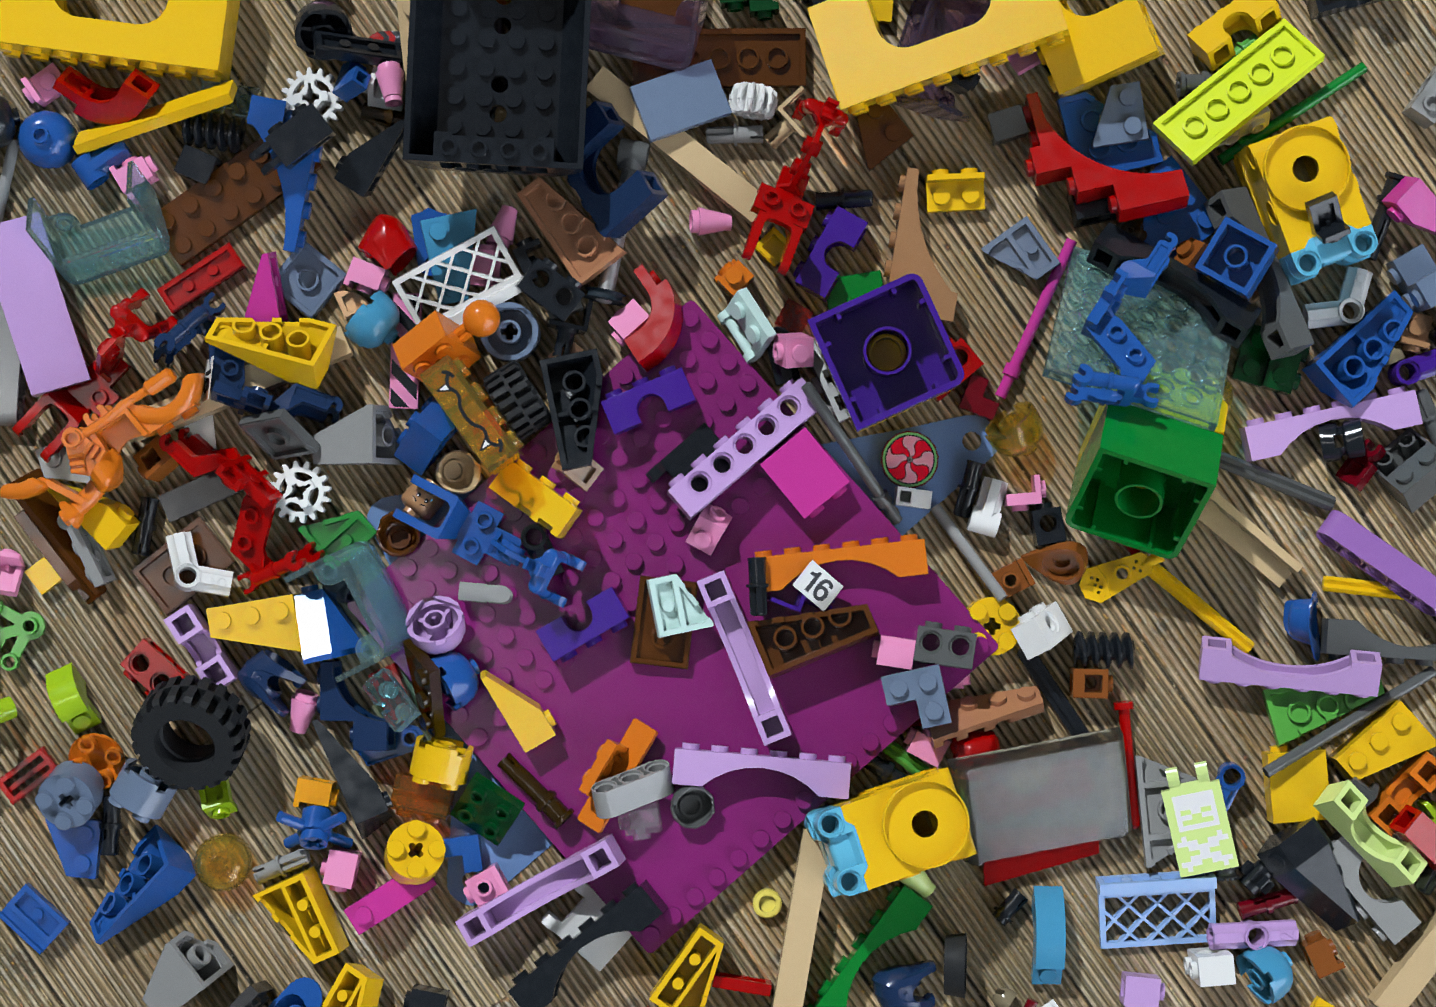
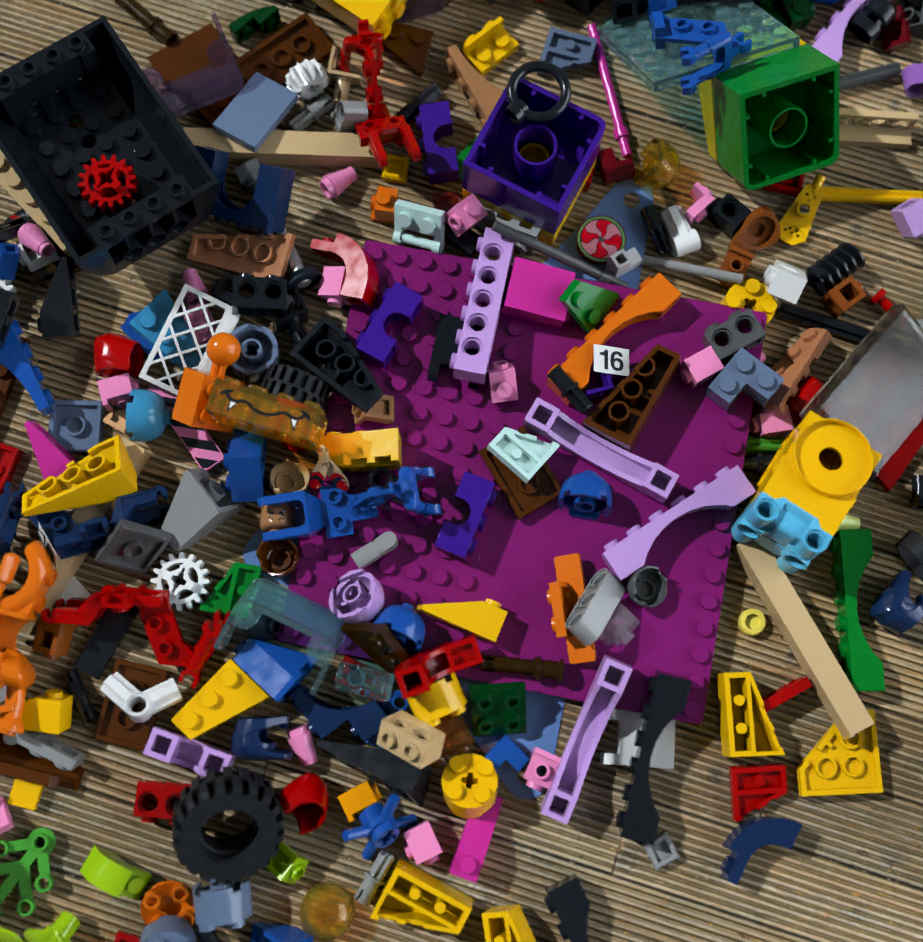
camera: 50 degrees left, 10 degrees down
(271, 761) = (306, 800): none -> red piece
(391, 779) = (411, 739): none -> tan brick
(456, 729) = (429, 665): none -> red arch
(474, 92) = (108, 179): none -> red gear
(494, 492) = (325, 467): none -> piece
(702, 686) = (586, 496): none -> blue cylinder
(764, 169) = (349, 113): none -> light grey piece
(840, 517) = (587, 303): none -> green wing
(893, 310) = (518, 111): none -> black piece

